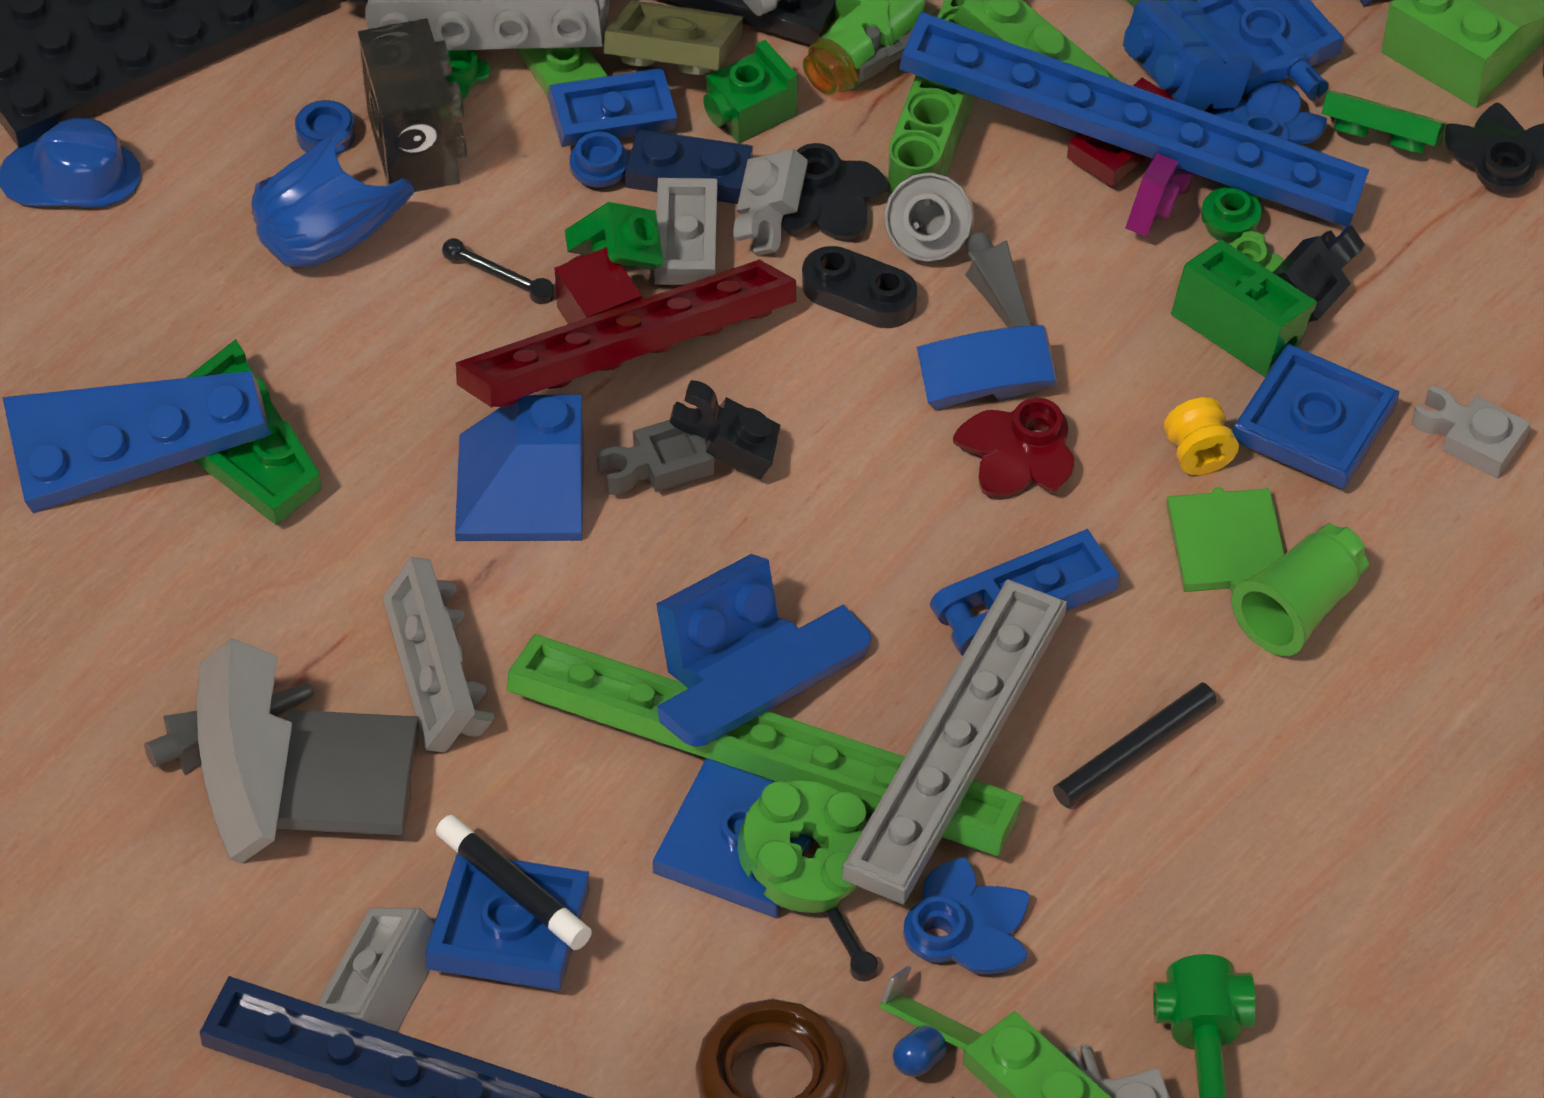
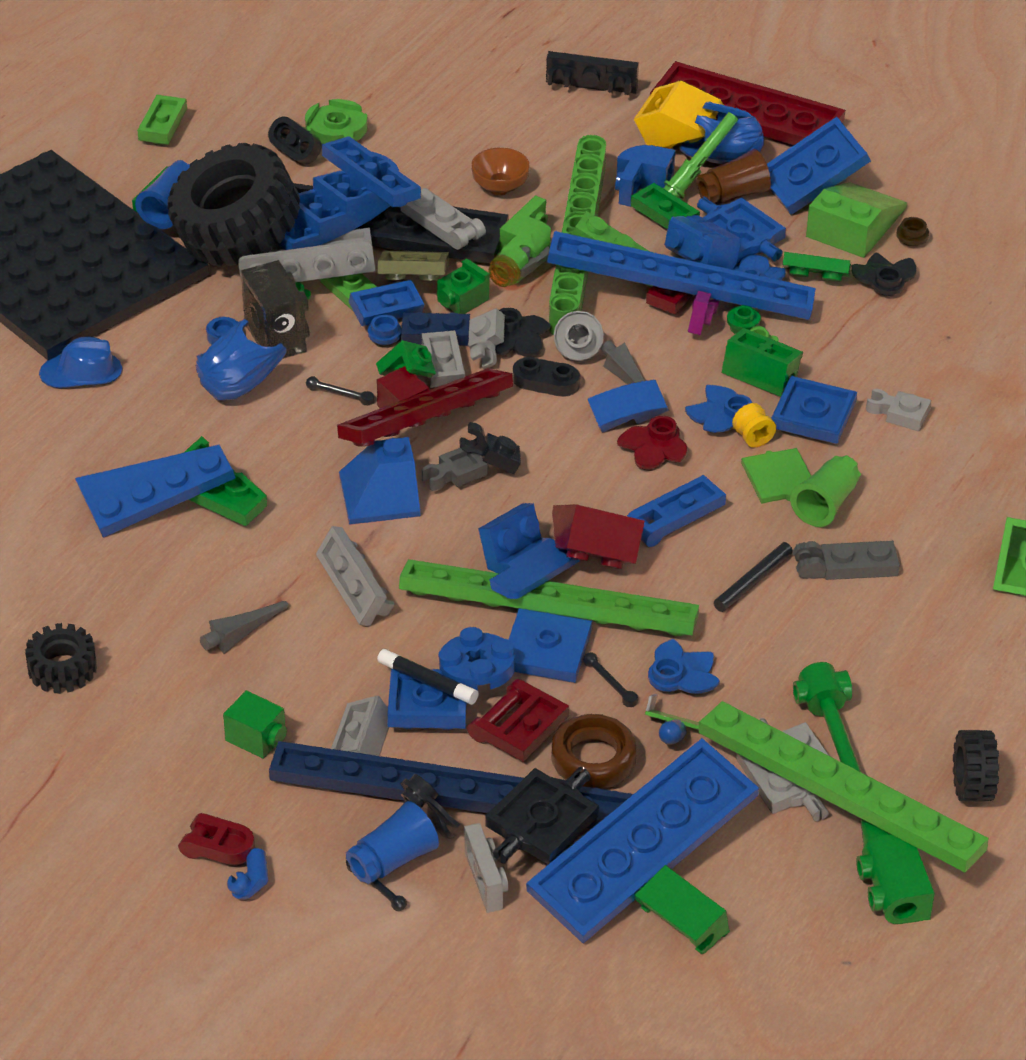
camera: 10 degrees left, 10 degrees down
(197, 934) = (254, 724): none -> green brick
(241, 745) = (258, 628): light grey slope -> none
(348, 772) = (317, 638): dark grey slope -> none
(602, 830) = (478, 659): none -> blue plate
(669, 1000) = (526, 727): none -> dark red plate
(786, 812) = (596, 626): bright green plate -> none
(869, 633) = (597, 534): none -> dark red slope
(953, 742) = (656, 580): light grey tile -> none
(1148, 392) = (718, 409): none -> blue plate
(1309, 733) = (846, 560): none -> dark grey hinge
(1317, 267) = (799, 337): black plate -> none

